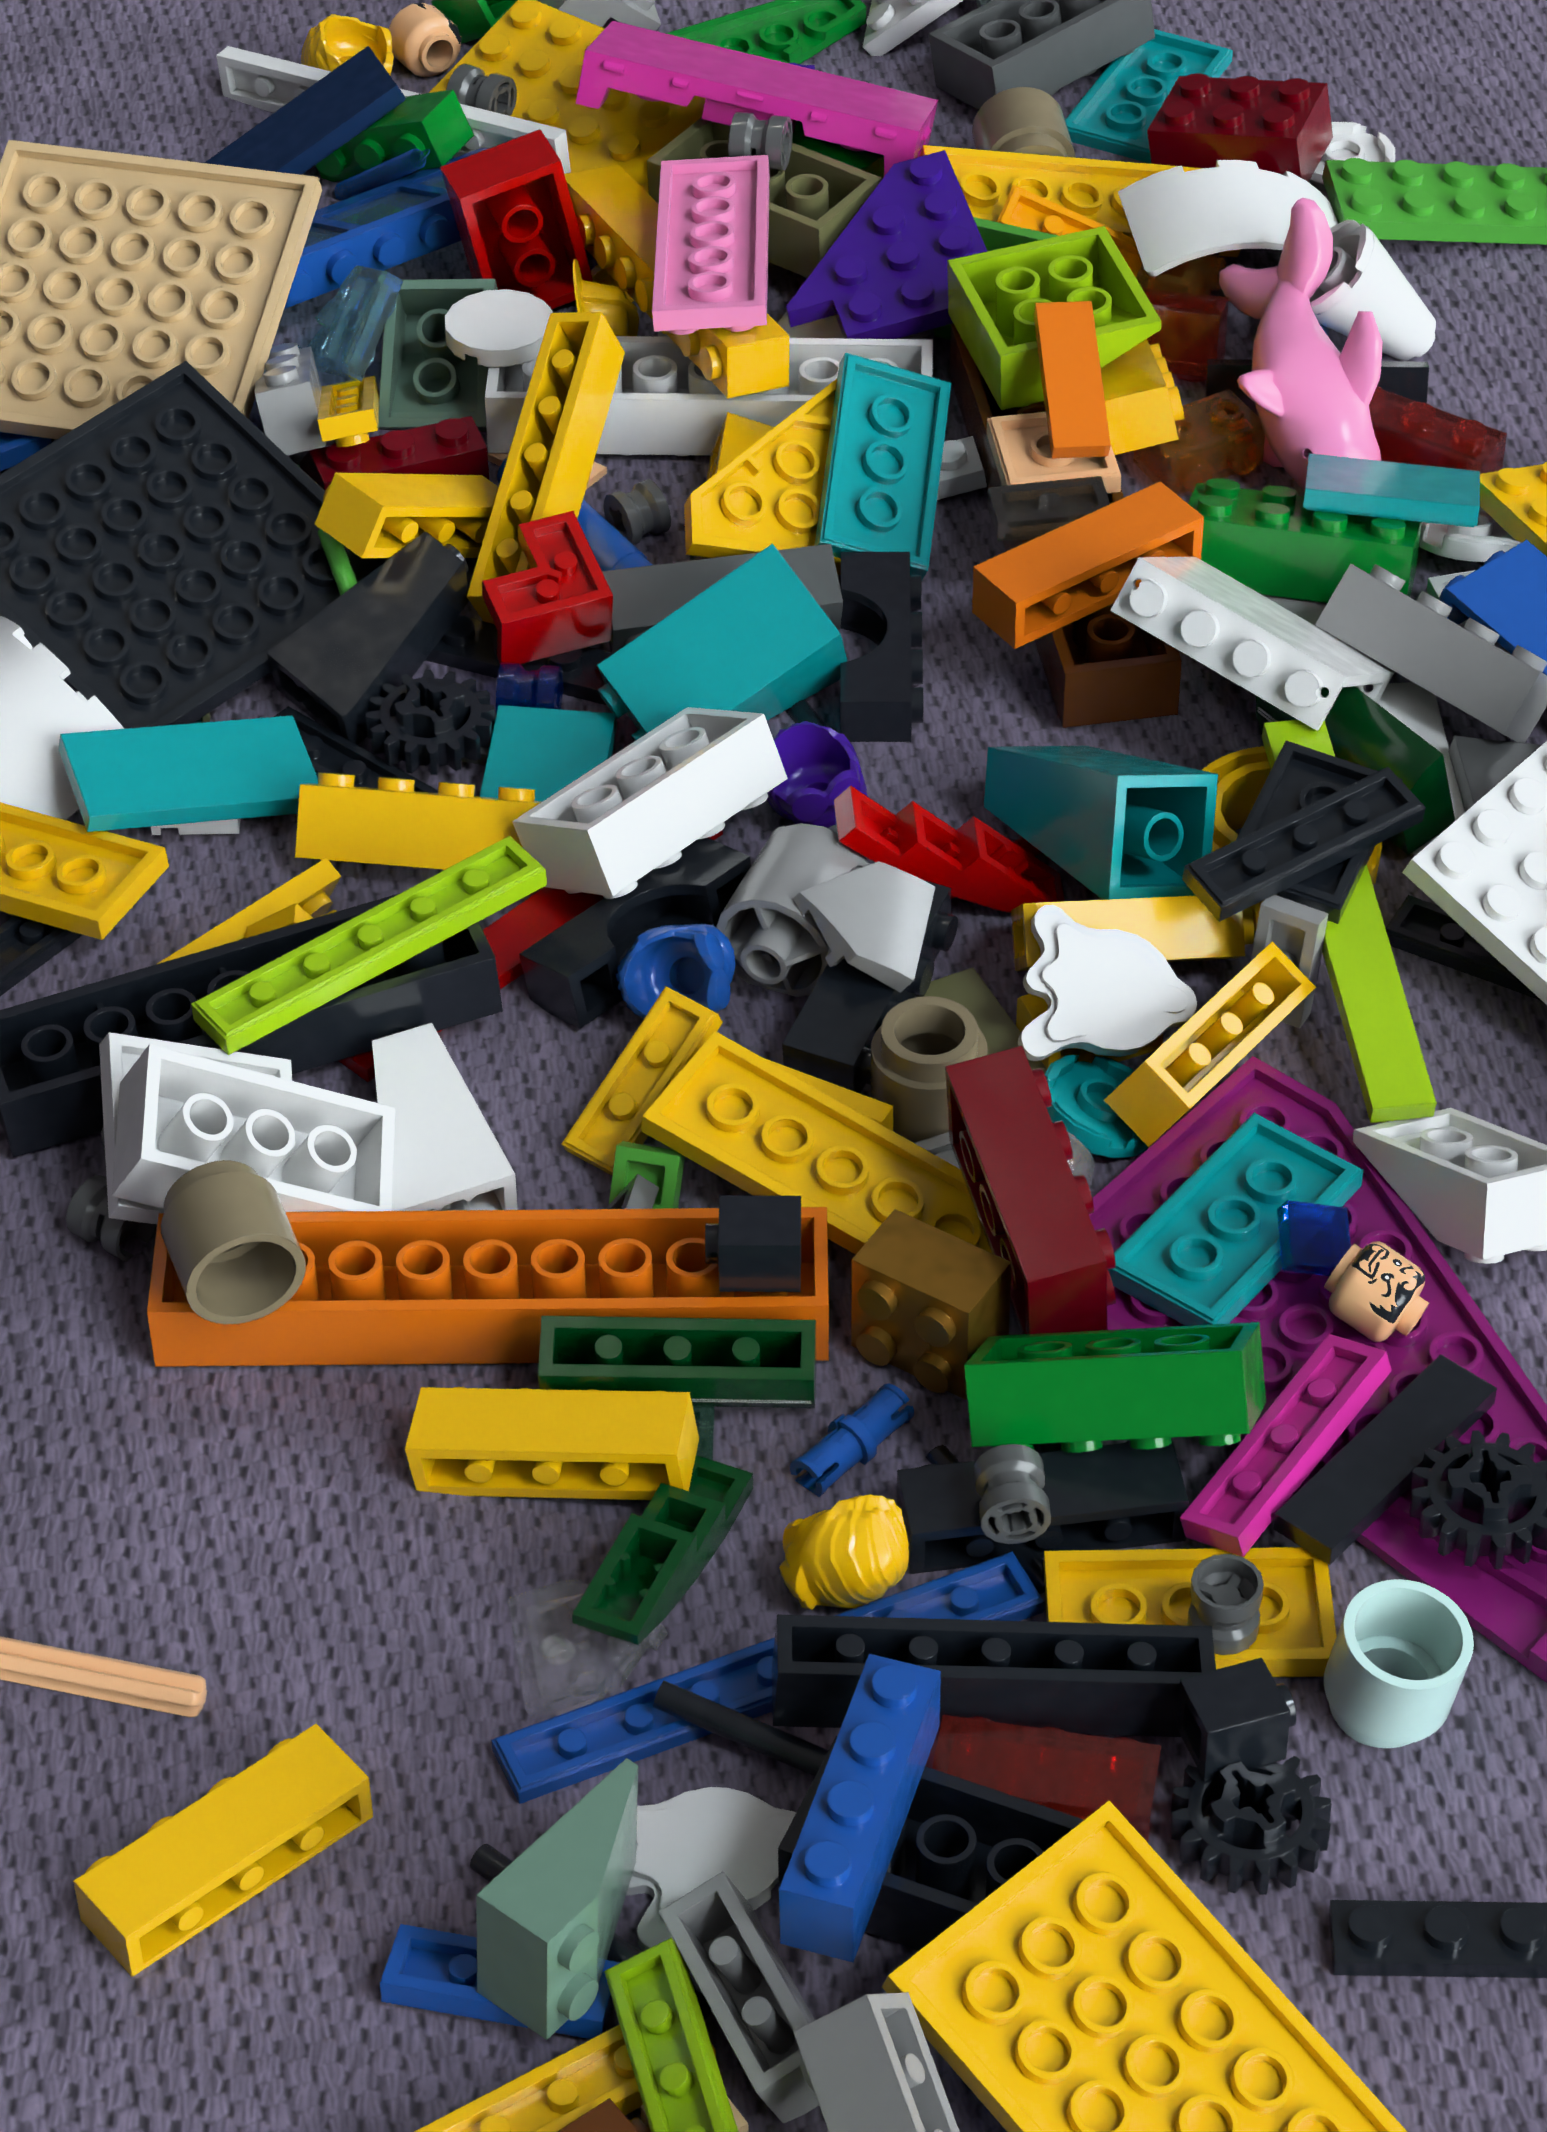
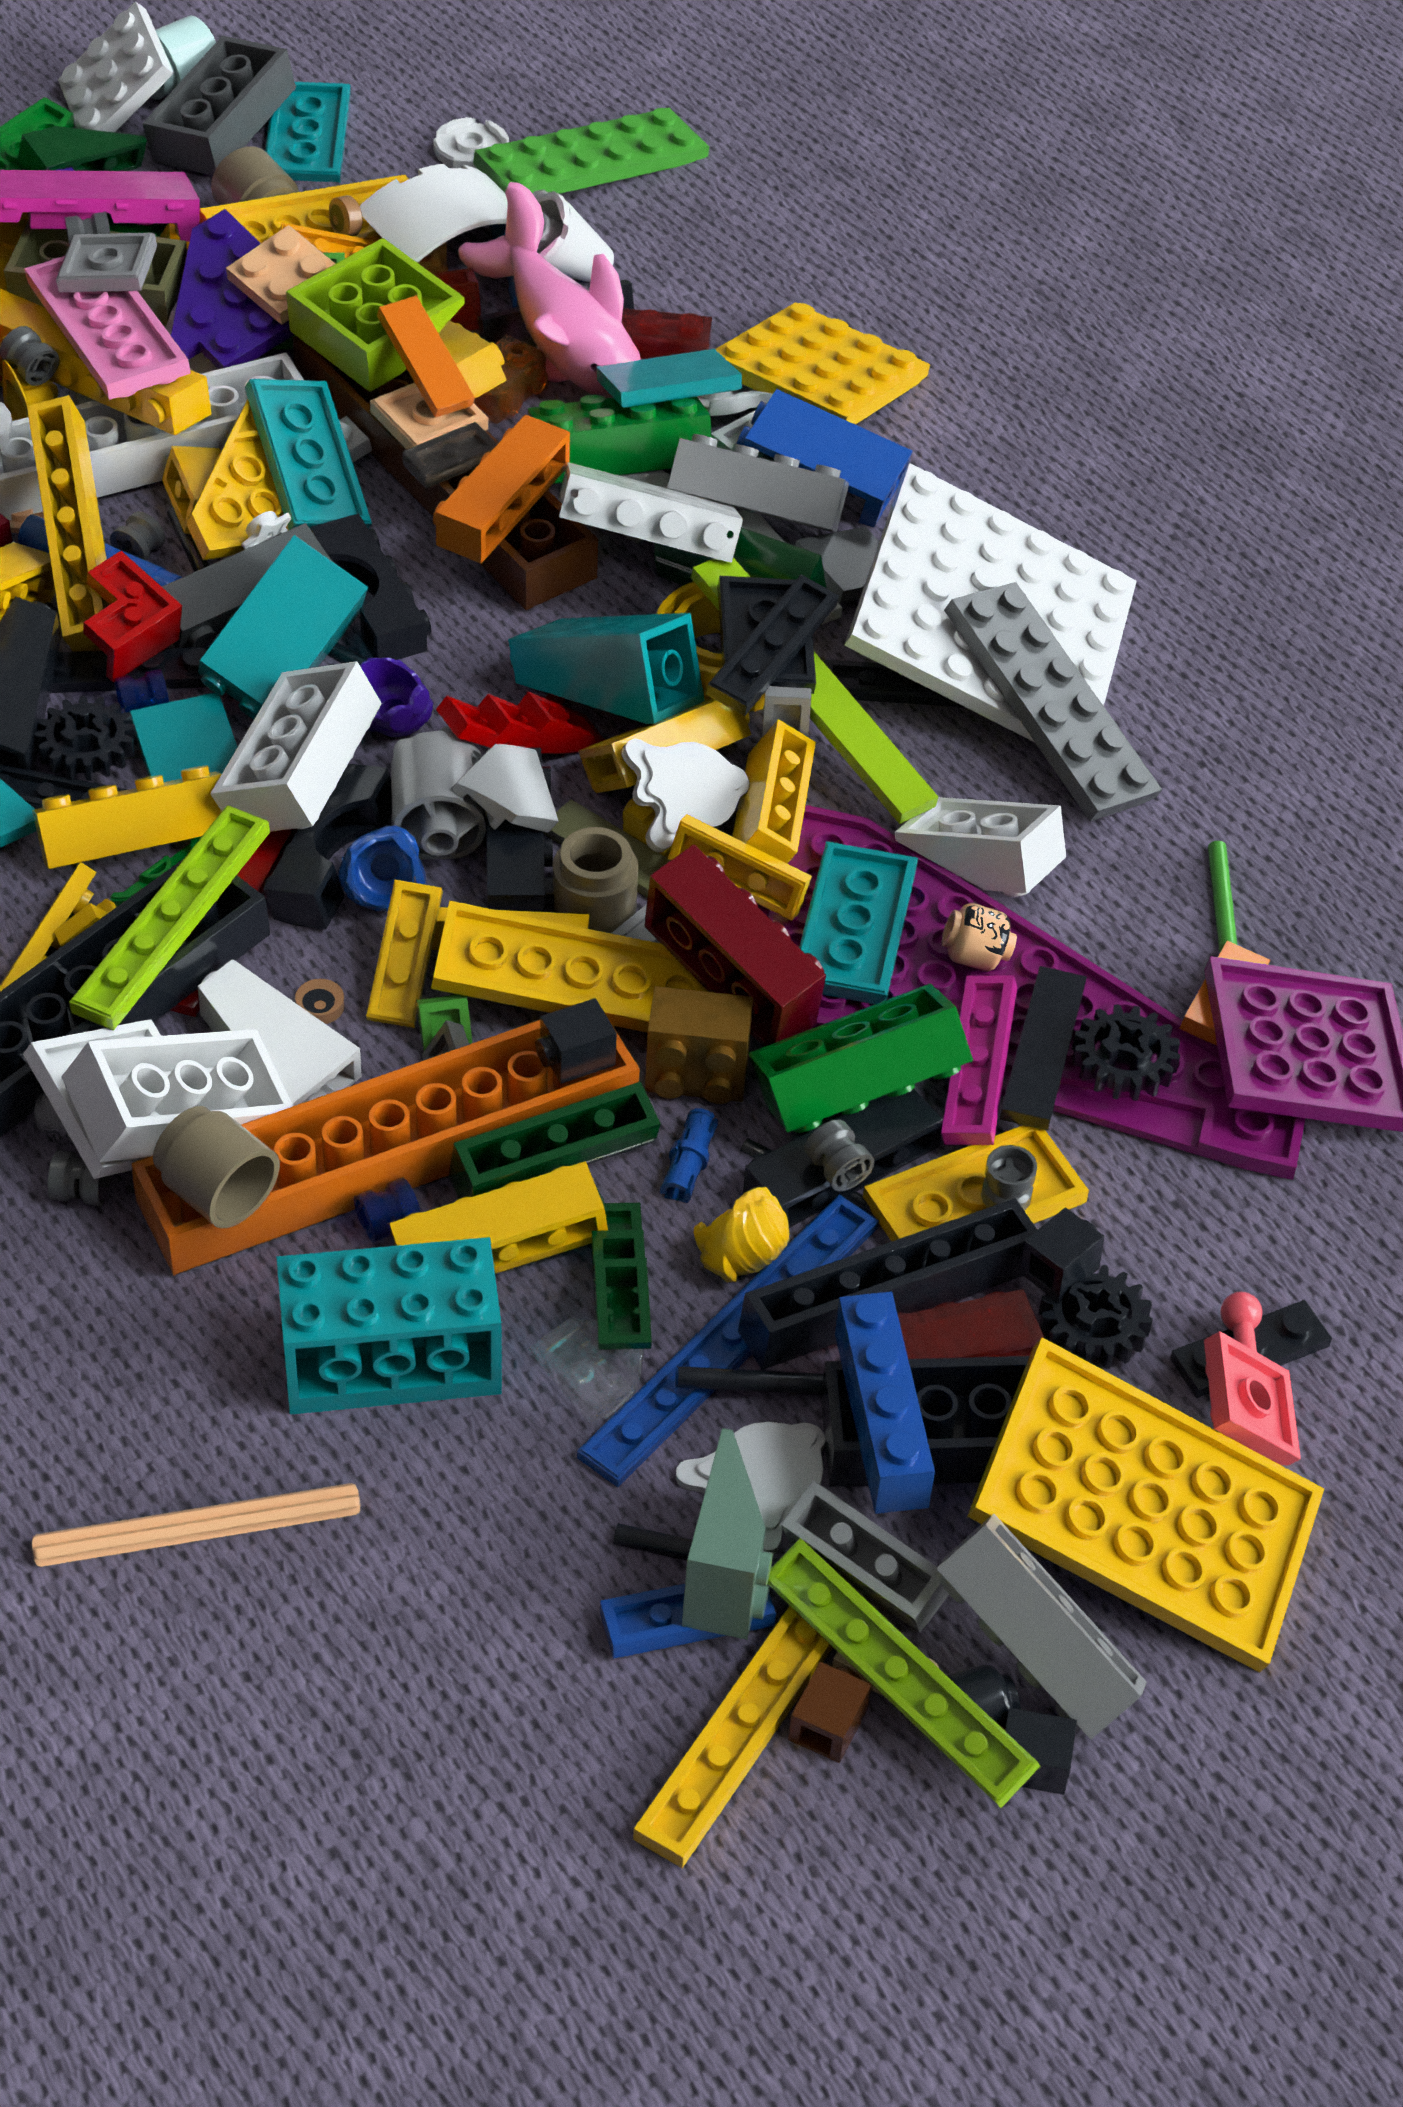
camera: 30 degrees left, 5 degrees up
(223, 1849) = (445, 1597): yellow brick -> none
(338, 1503) = (390, 1325): none -> teal brick
(438, 1368) = (380, 1208): none -> clear blue wheel
(520, 1110) = (321, 999): none -> medium nougat tile
(606, 262) = (34, 361): none -> dark grey wheel
(752, 175) = (106, 262): none -> light grey tile
(773, 529) = (265, 527): none -> white plate
(844, 50) = (81, 150): none -> dark green slope
(960, 229) = (275, 268): none -> light nougat plate
(1103, 197) = (345, 215): none -> medium nougat tile
(1113, 1107) = (764, 876): none -> yellow tile
(1243, 119) = (399, 138): dark red brick -> none
(1312, 1237) = (917, 914): clear blue tile -> none
(1401, 1632) = (1136, 1181): light aqua piece -> none
(1425, 1985) = (1247, 1390): none -> coral plate

